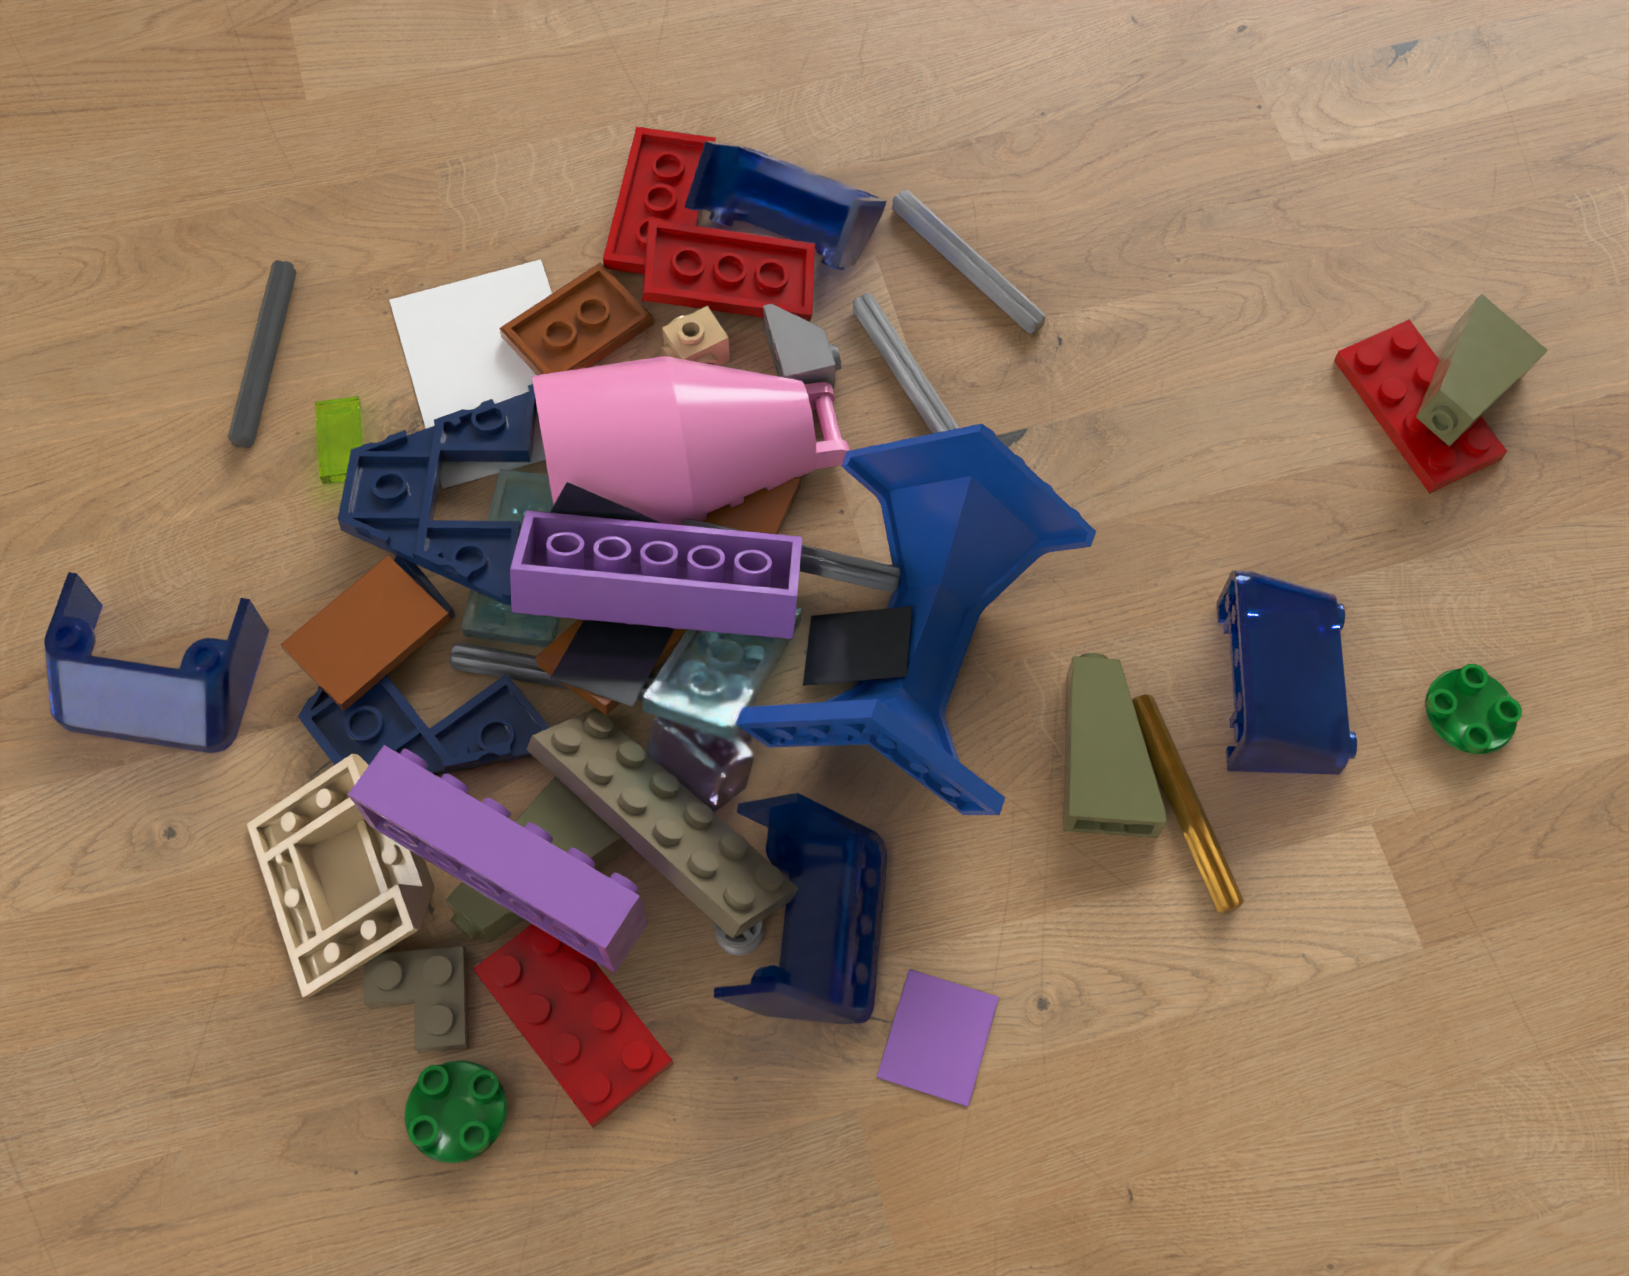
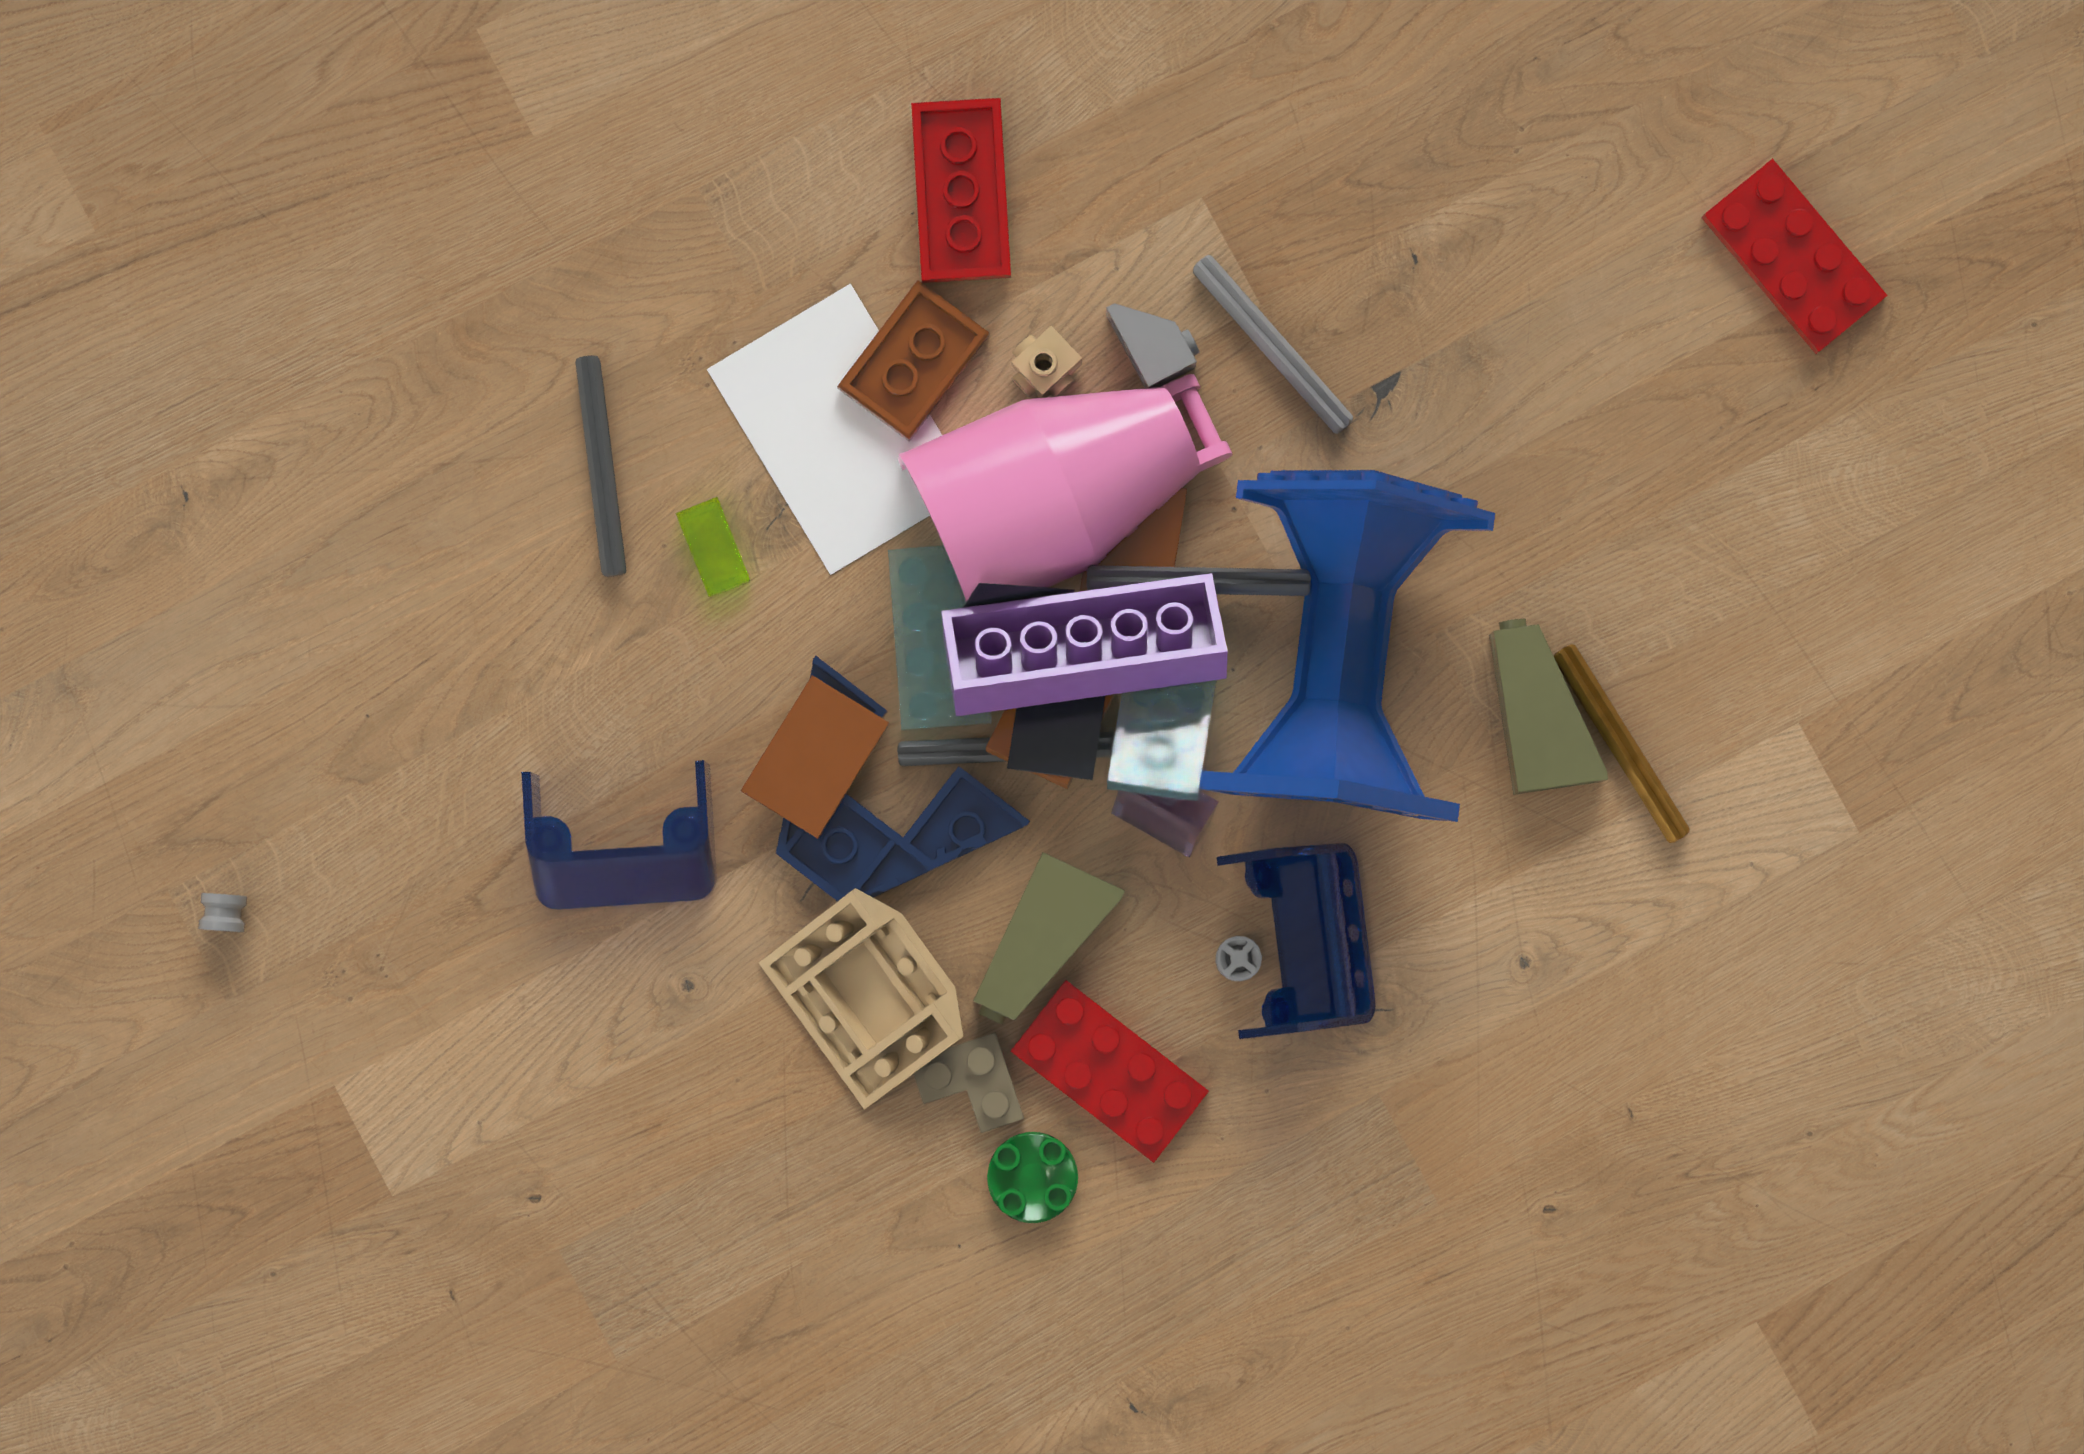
camera: 10 degrees left, 20 degrees up
(395, 489) = (793, 598): dark blue wing -> none
(500, 857) = (1021, 963): medium lavender brick -> none
(663, 821) = (1146, 879): dark tan plate -> none
(727, 270) = (1058, 269): red plate -> none
(786, 200) = (1105, 158): clear blue windscreen -> none
(858, 646) = (1285, 660): black sticker -> none
(938, 1037) = (1437, 1013): medium lavender sticker -> none
(969, 262) = (1301, 187): light grey axle -> none
(1285, 677) = (1698, 598): clear blue windscreen -> none
(1472, 710) = (1879, 590): green dish -> none
(1476, 369) = (1846, 217): olive slope -> none

